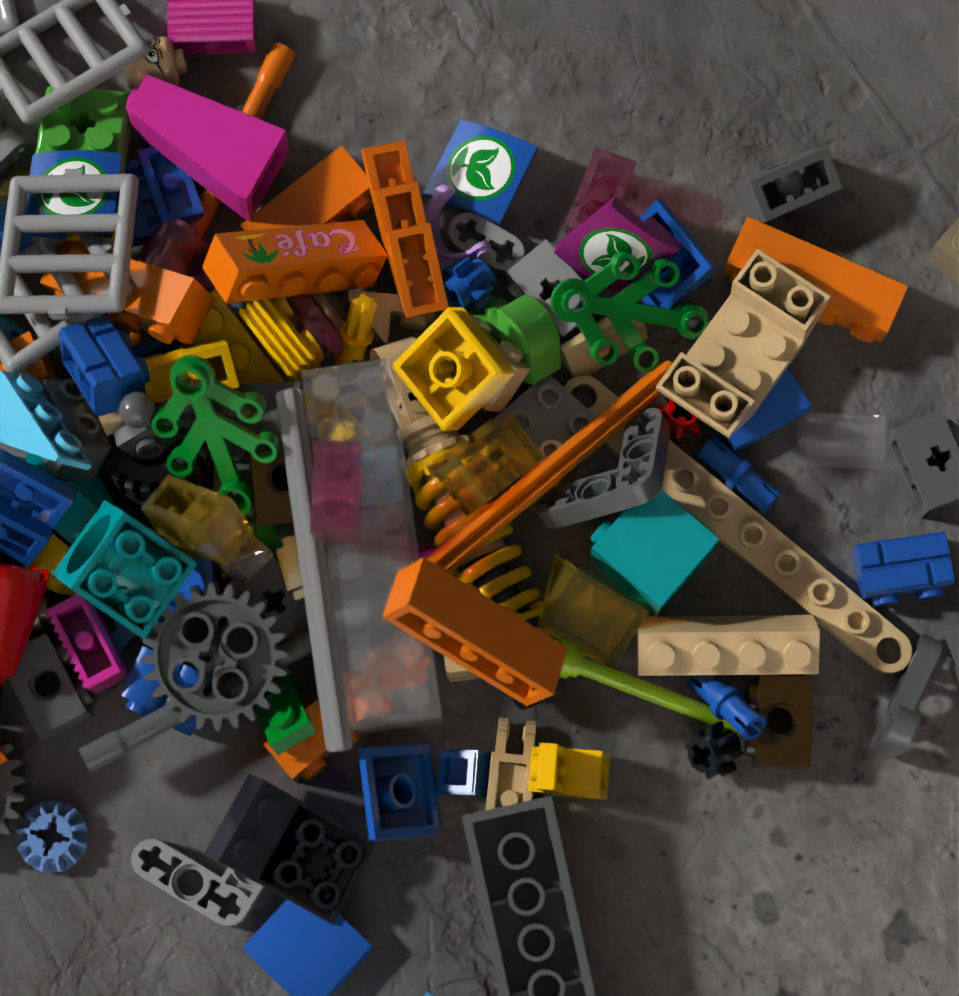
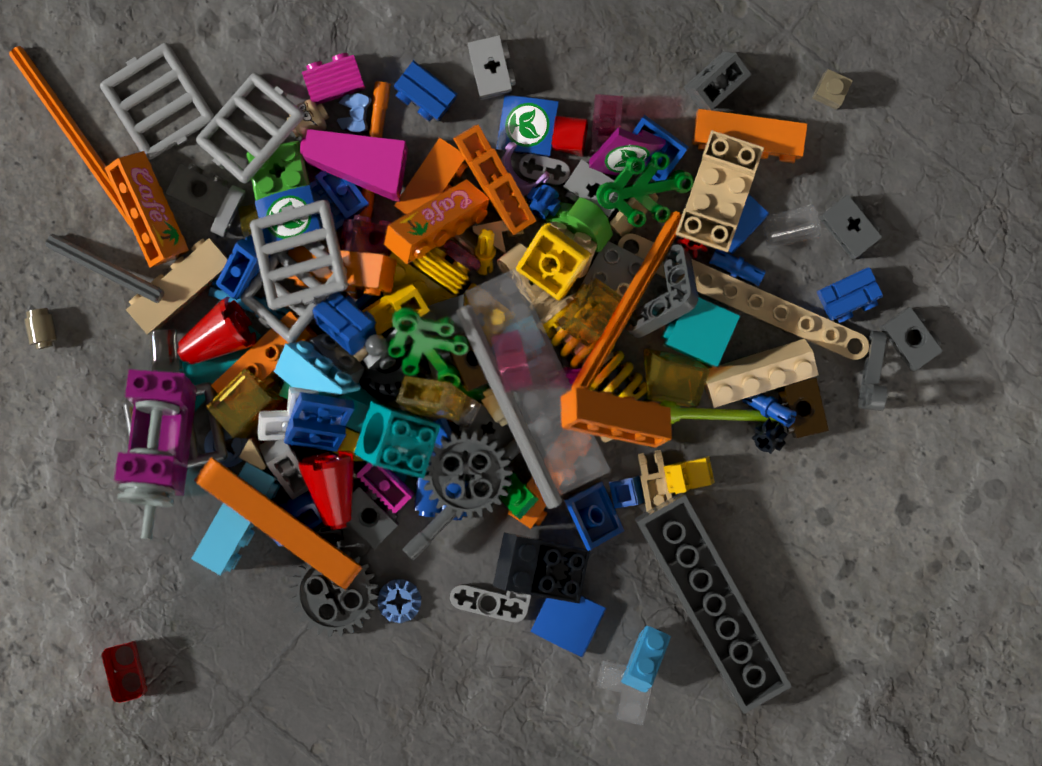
camera: 20 degrees left, 10 degrees up
(237, 69) = (359, 105): none -> medium blue piece
(342, 77) = (425, 92): none -> blue brick
(449, 47) = (481, 54): none -> light grey brick
(539, 199) = (569, 135): none -> red piece

